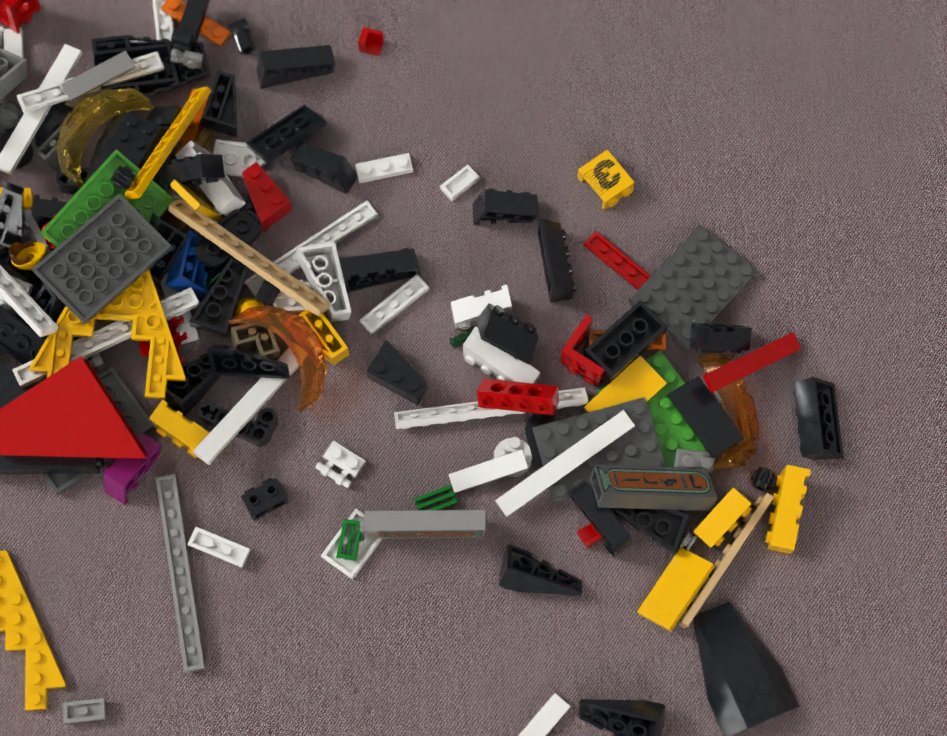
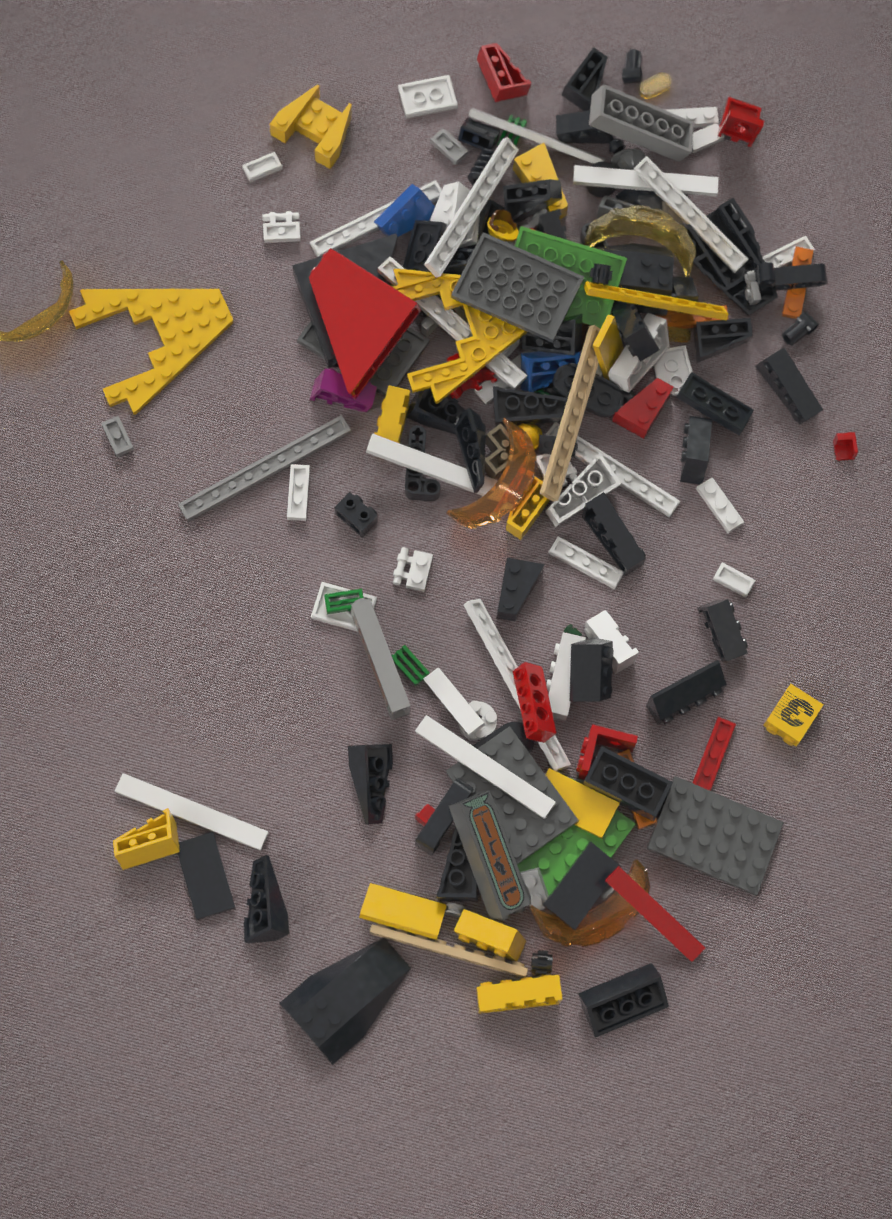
camera: 65 degrees right, 0 degrees up
(98, 76) = (697, 217): light grey tile -> none
(720, 337) = (667, 874): black wedge -> none

